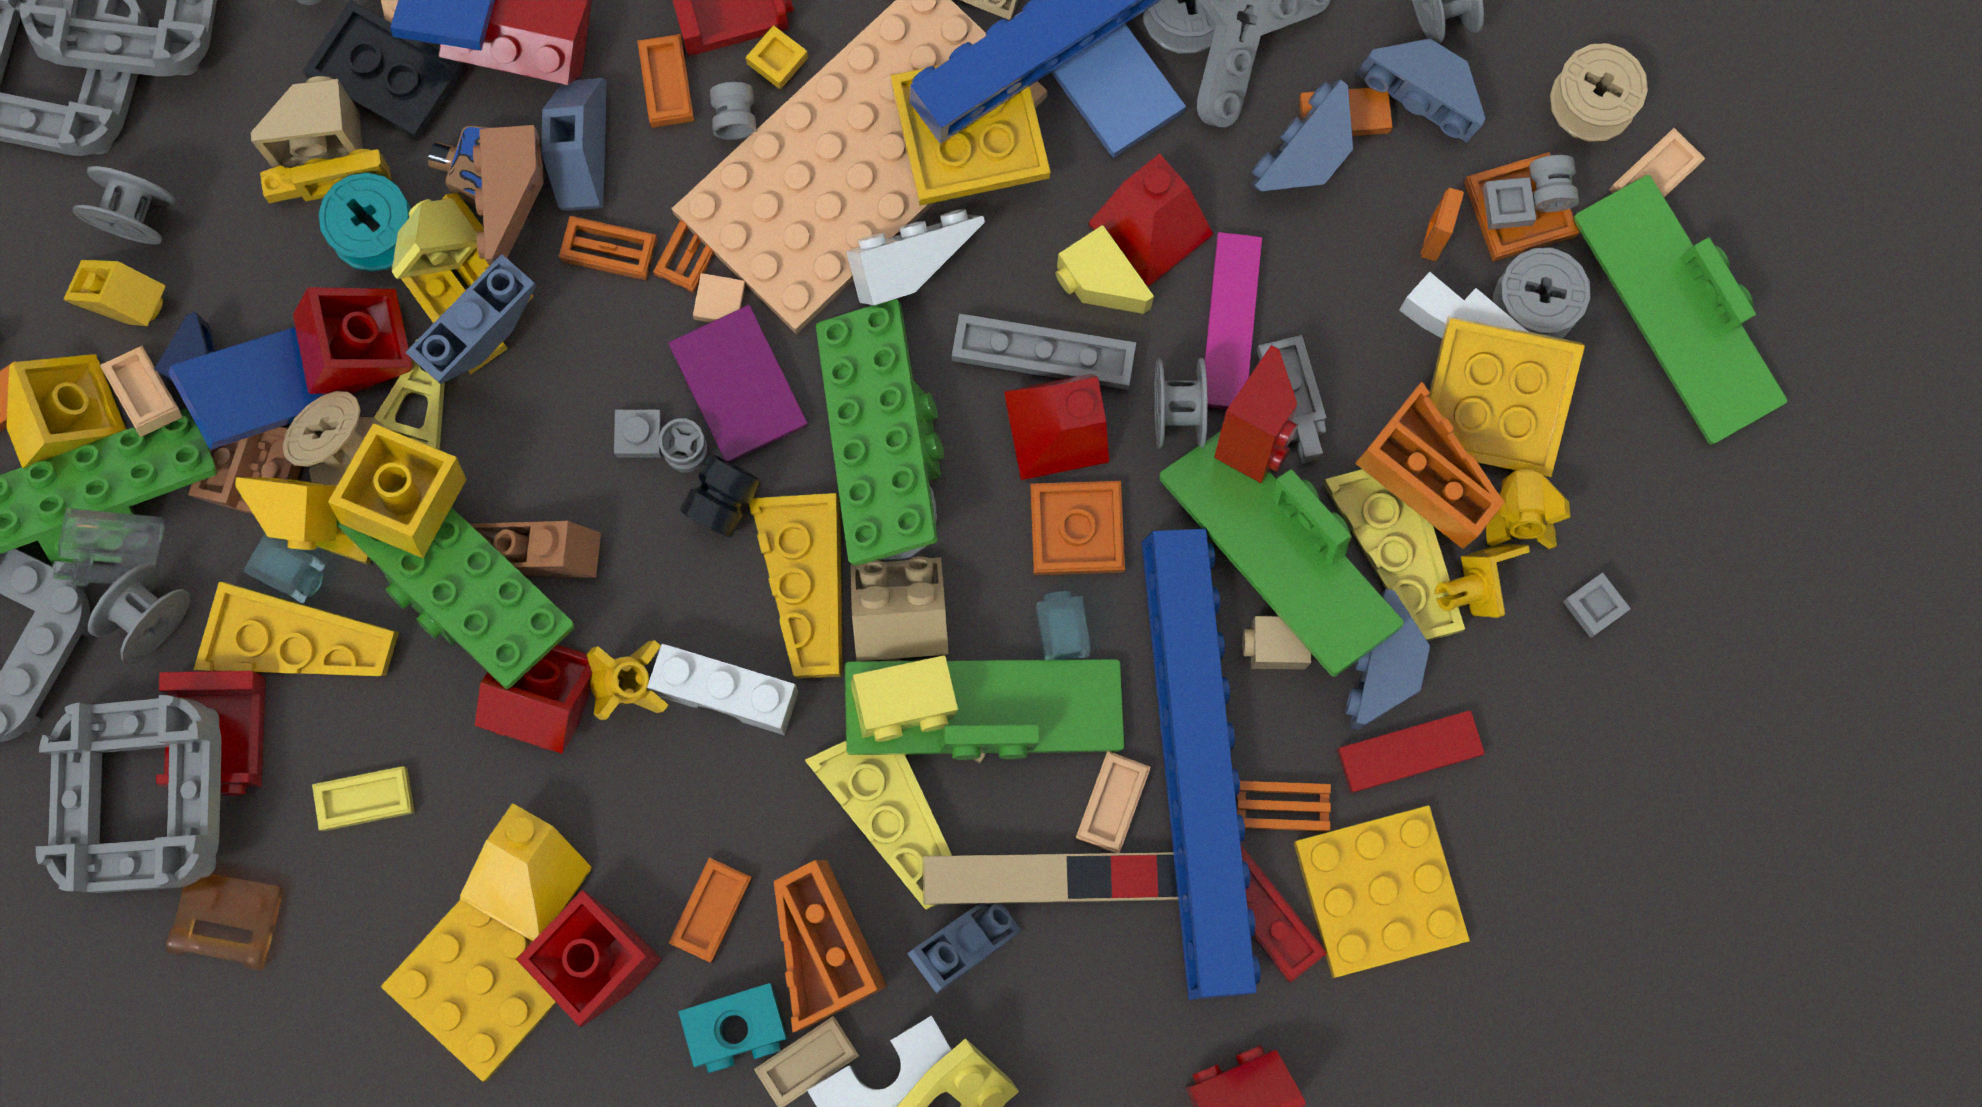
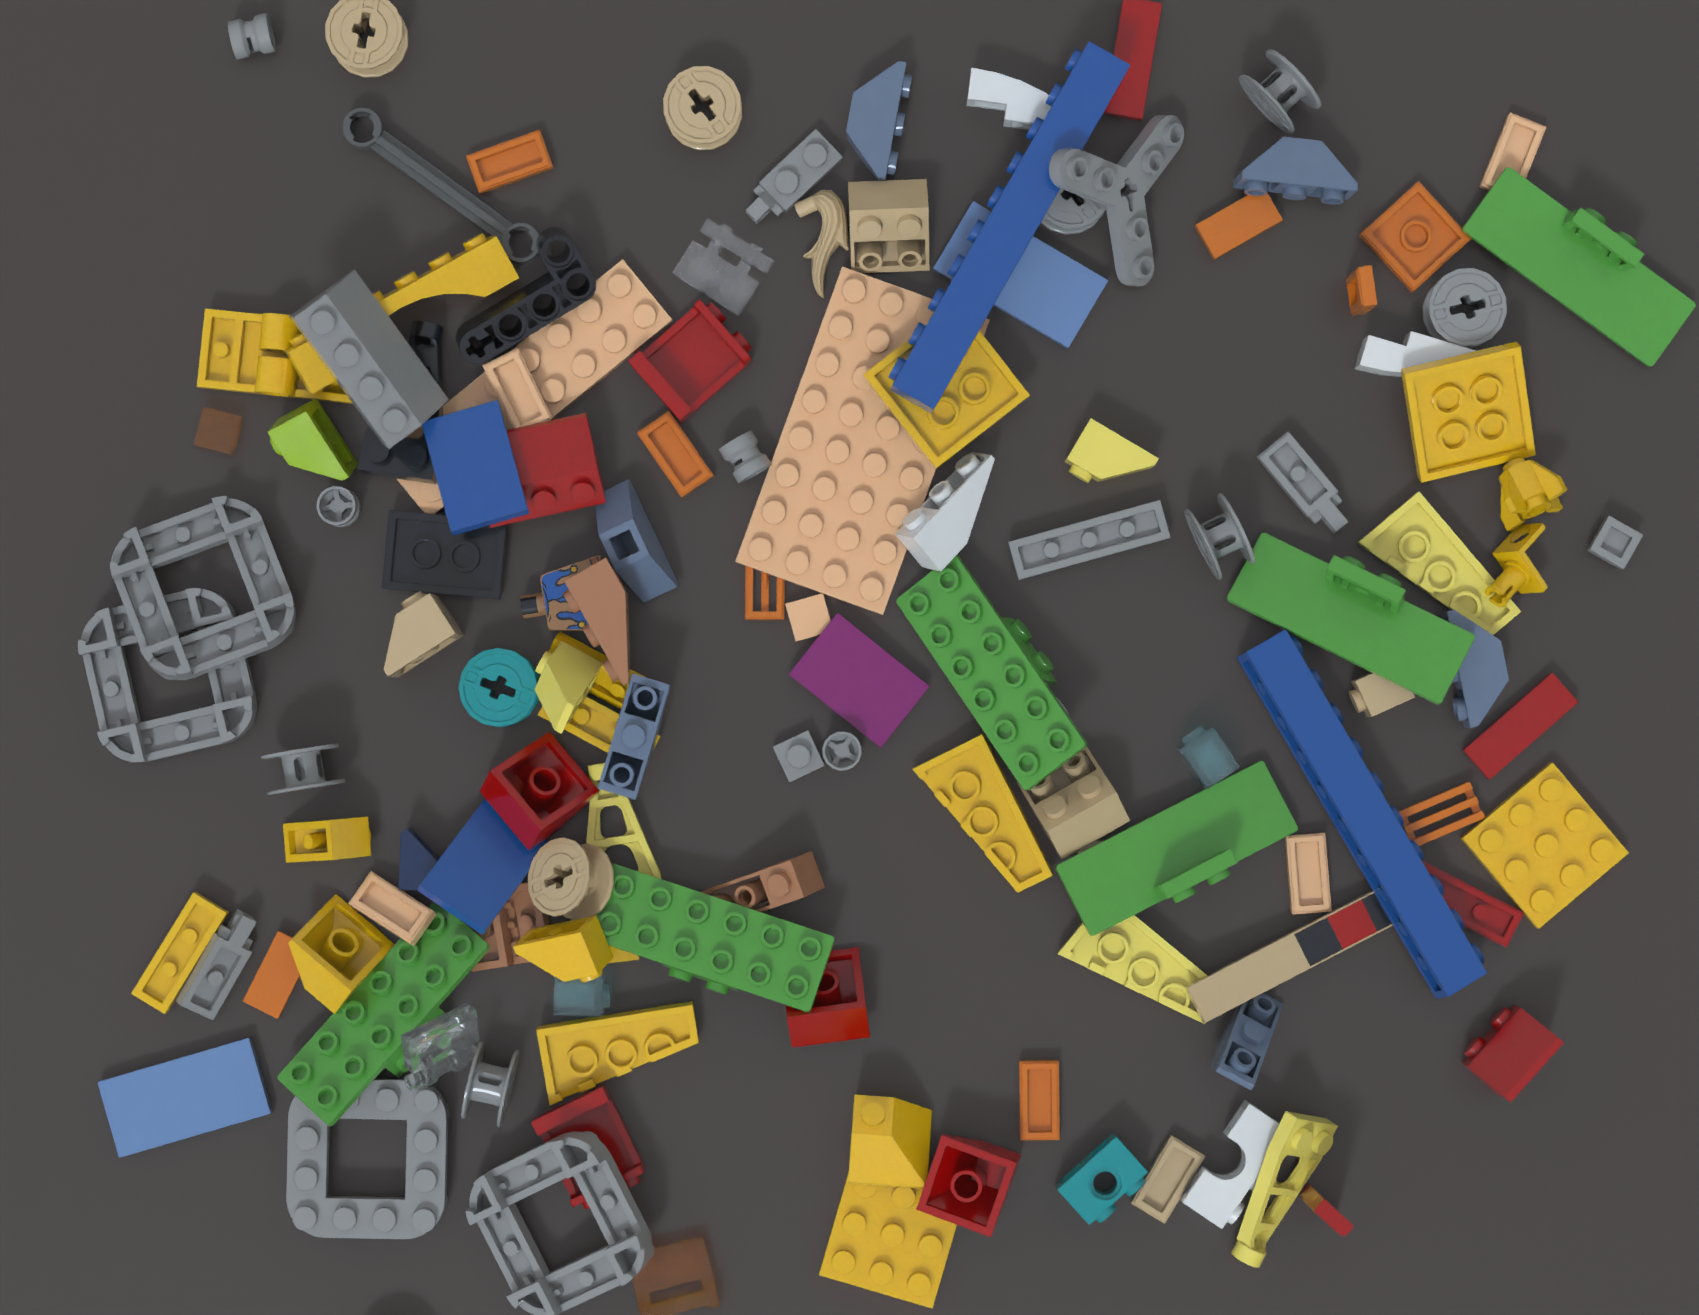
camera: 20 degrees left, 10 degrees up
(319, 175) = (443, 667): yellow hinge -> none
(363, 798) = (730, 1140): light yellow tile -> none
(397, 490) = (650, 900): yellow brick -> none
(604, 264) = (731, 609): orange tile -> none
(623, 680) = (890, 960): yellow brick -> none
(720, 496) = (893, 779): black wheel -> none
(723, 688) = (969, 929): white arch -> none
(777, 57) = (757, 394): yellow plate -> none
(822, 946) = (1143, 1090): orange wedge -> none
(904, 698) = (1117, 875): light yellow brick -> none
(1058, 426) = (1128, 596): red slope -> none
(1077, 528) = (1180, 669): orange tile -> none
(1154, 220) = (1126, 392): red slope -> none
(1231, 316) = (1225, 441): dark pink tile -> none
(1260, 421) = (1293, 525): red slope -> none
(1310, 146) = (1226, 272): sand blue slope -> none
(1431, 471) = (1441, 502): orange wedge -> none
(1509, 203) = (1406, 245): light grey plate -> none
(1554, 183) = (1440, 220): light grey wheel -> none
(1609, 71) = (1453, 96): tan piece -> none

